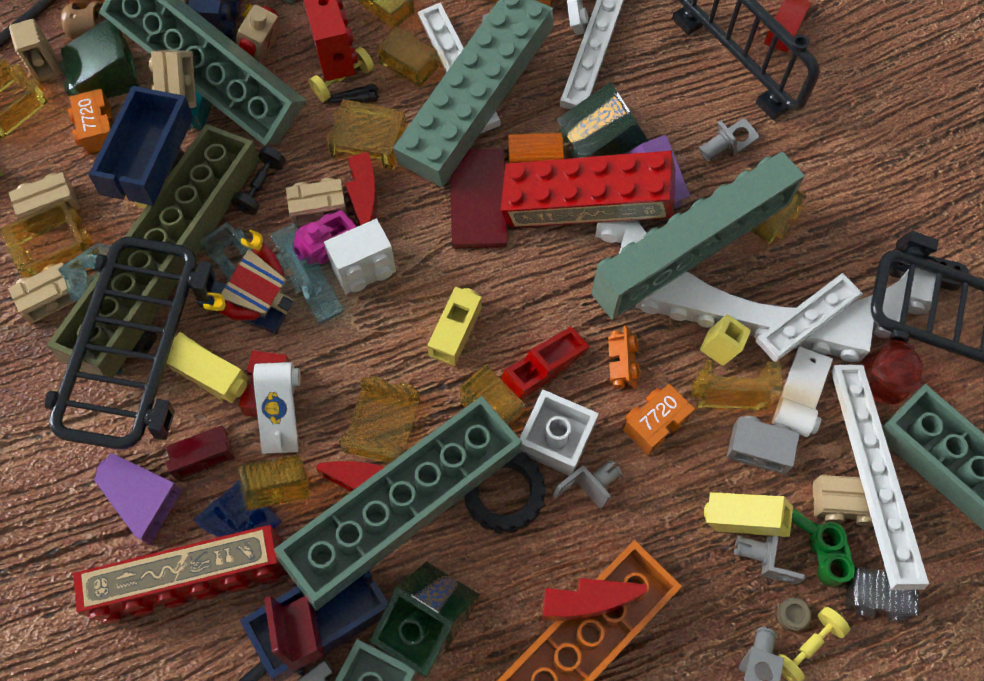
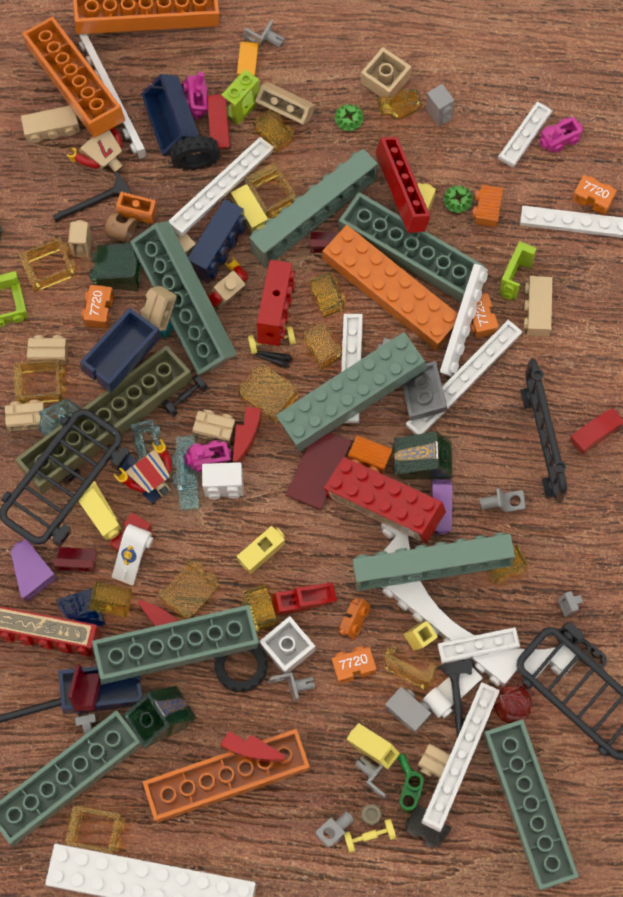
camera: 30 degrees right, 5 degrees up
(567, 56) = (425, 393): none -> flat silver plate
(792, 365) = (454, 670): none -> black piece
(880, 222) = (569, 603): none -> light grey tile

